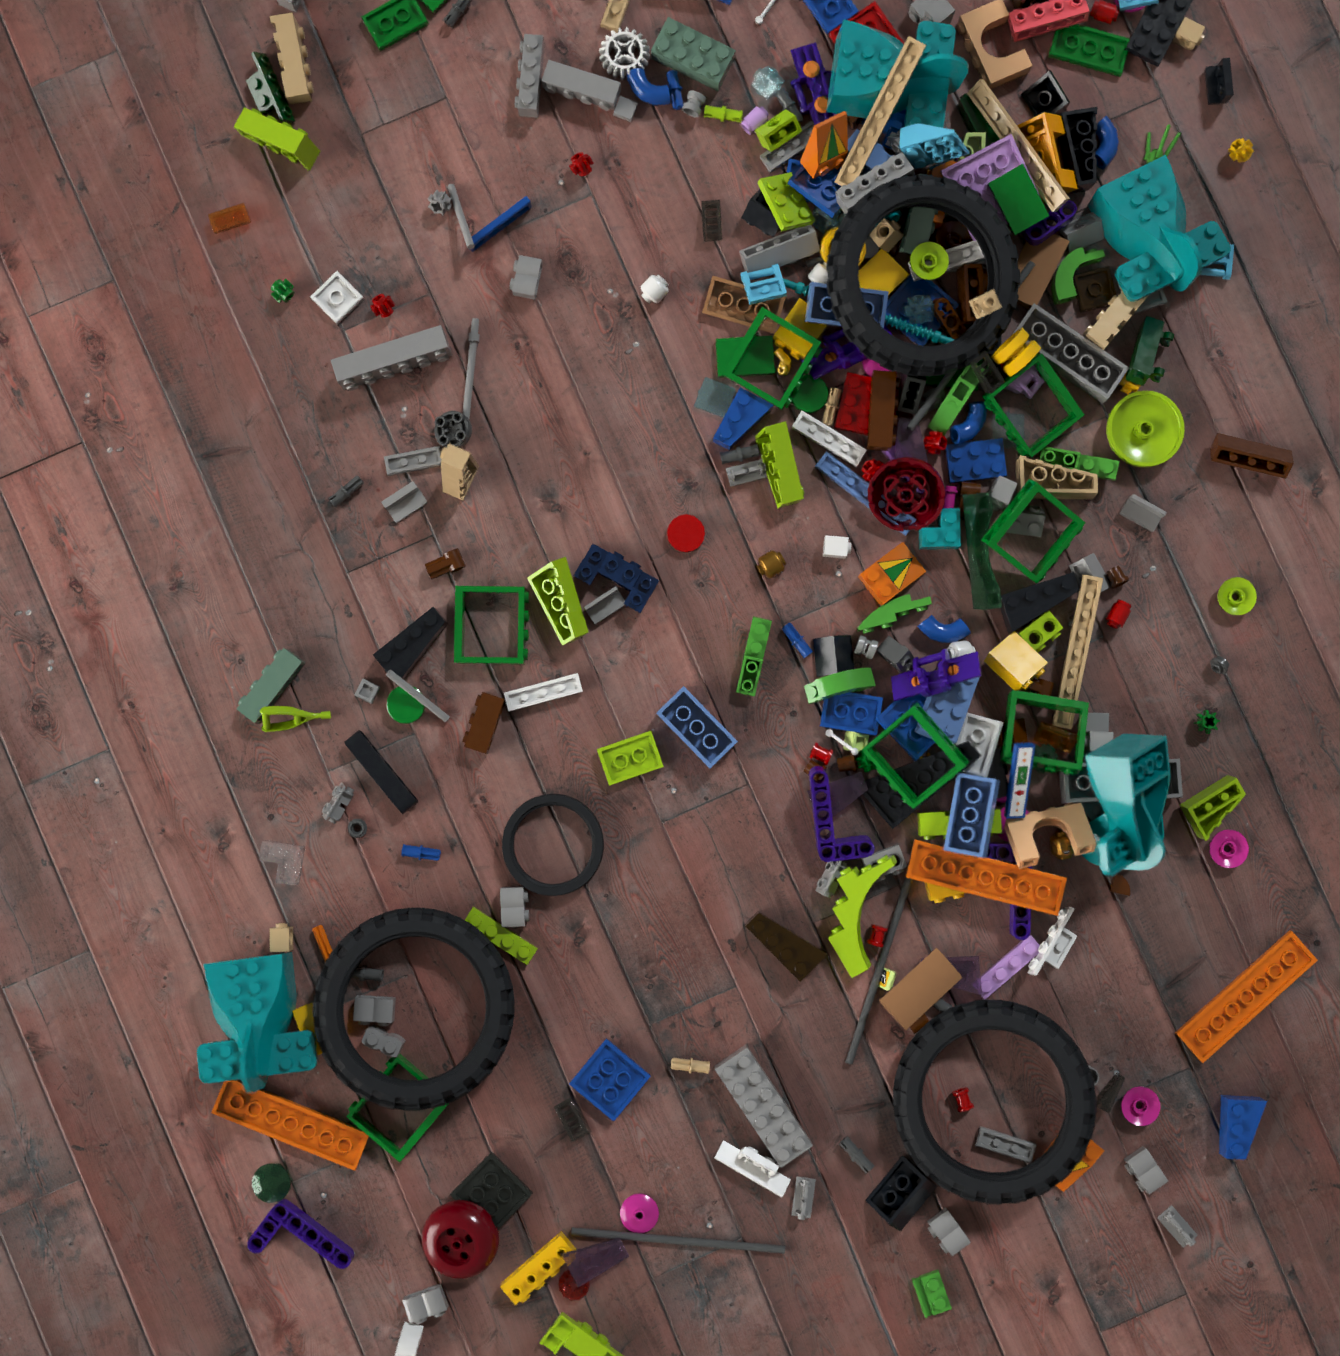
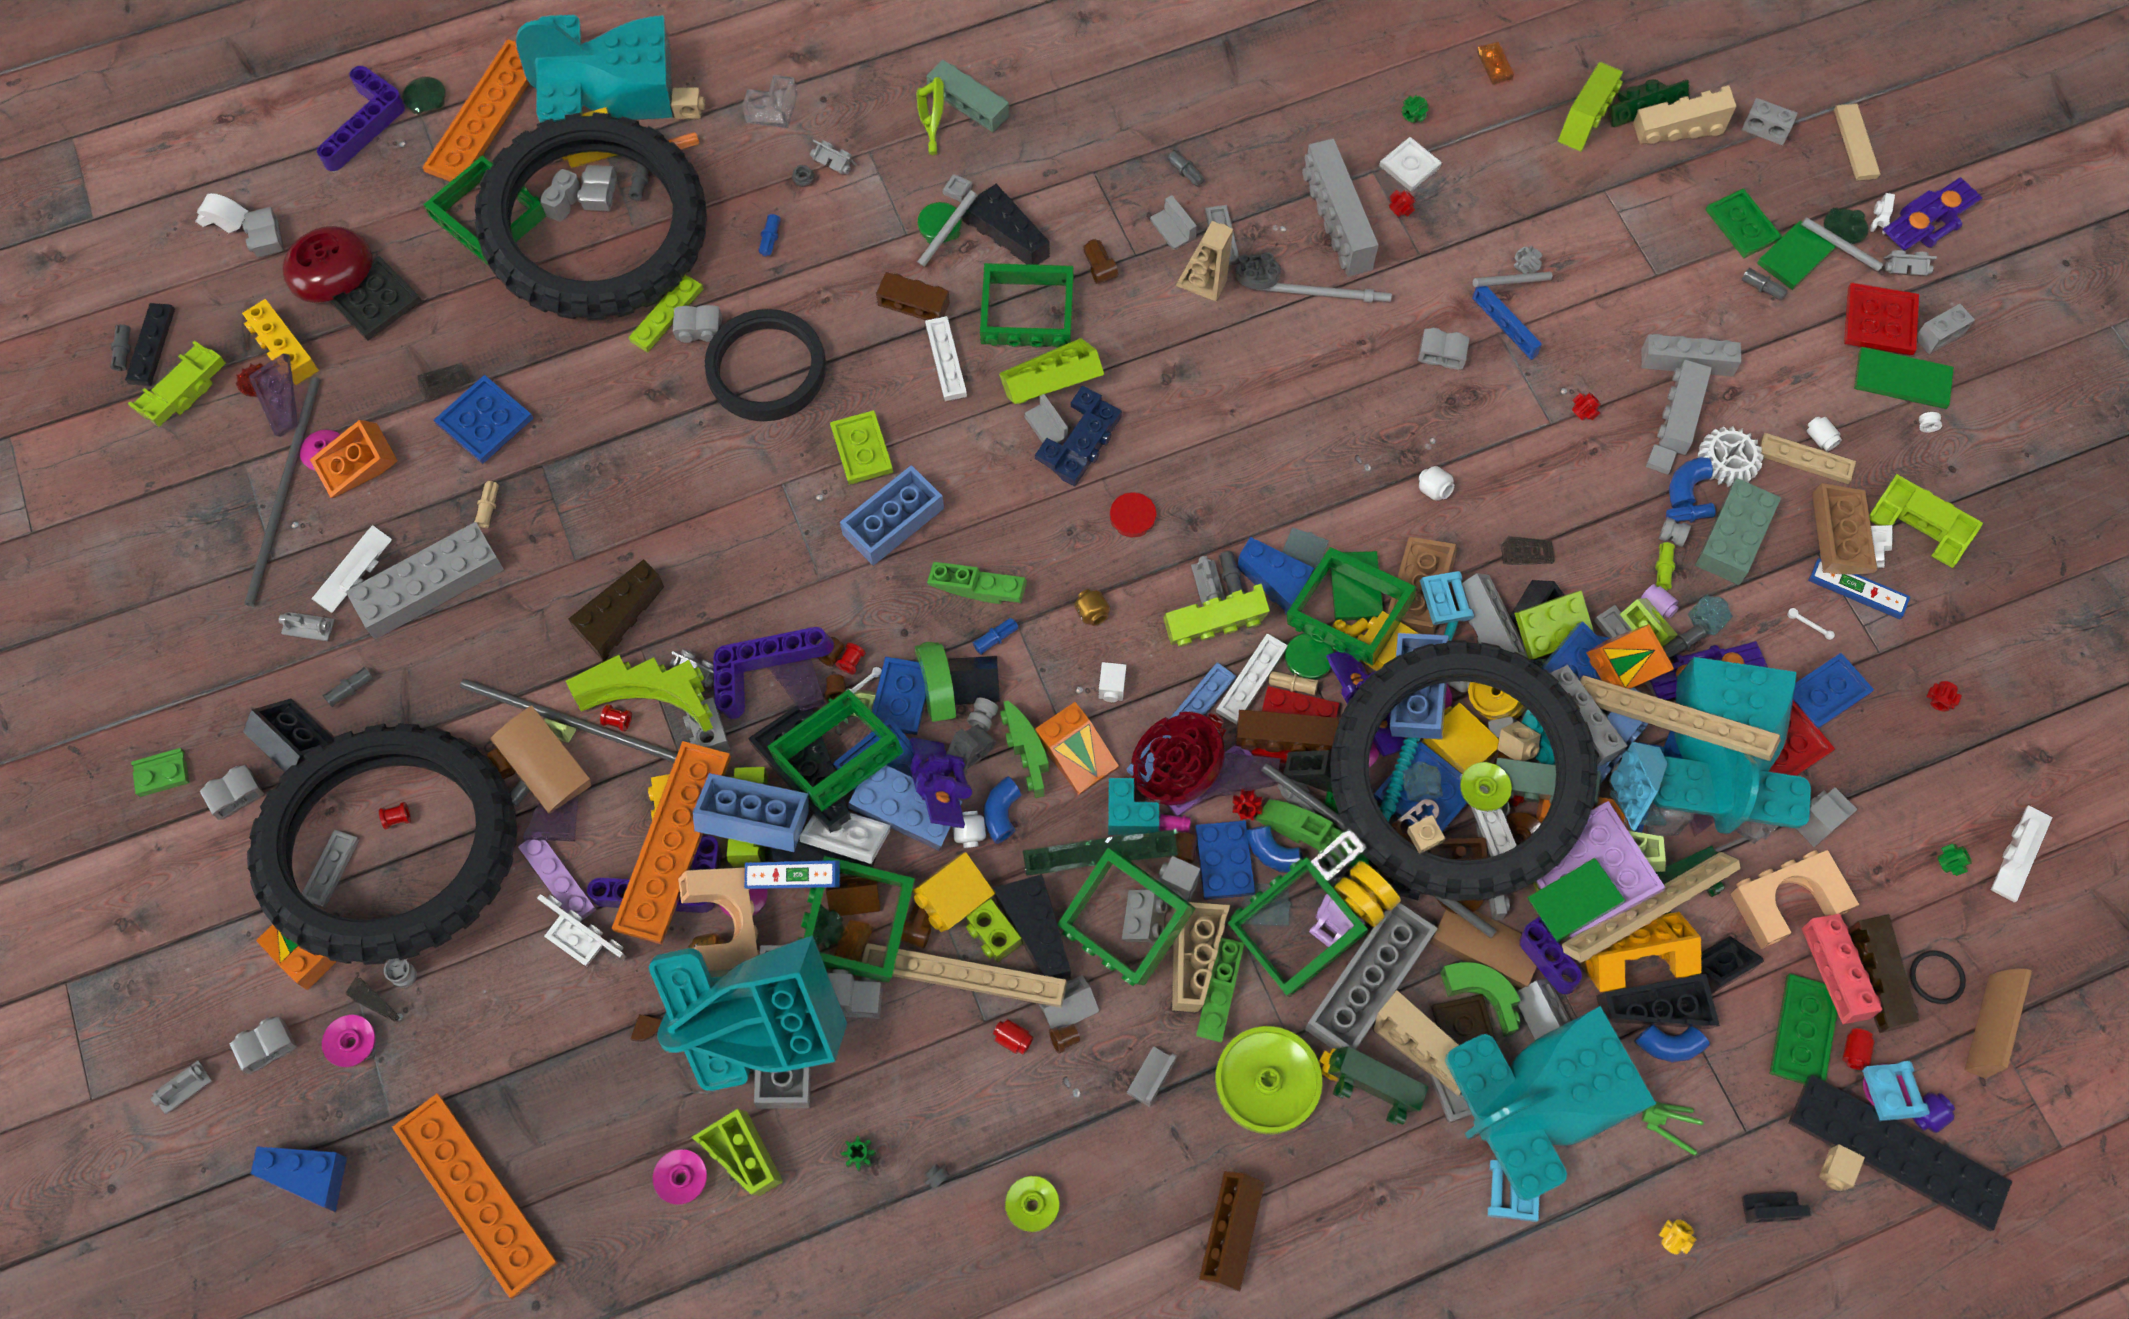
camera: 90 degrees right, 20 degrees down
(381, 771) = (864, 197): black beam -> none
(652, 1183) = (353, 458): none -> orange slope

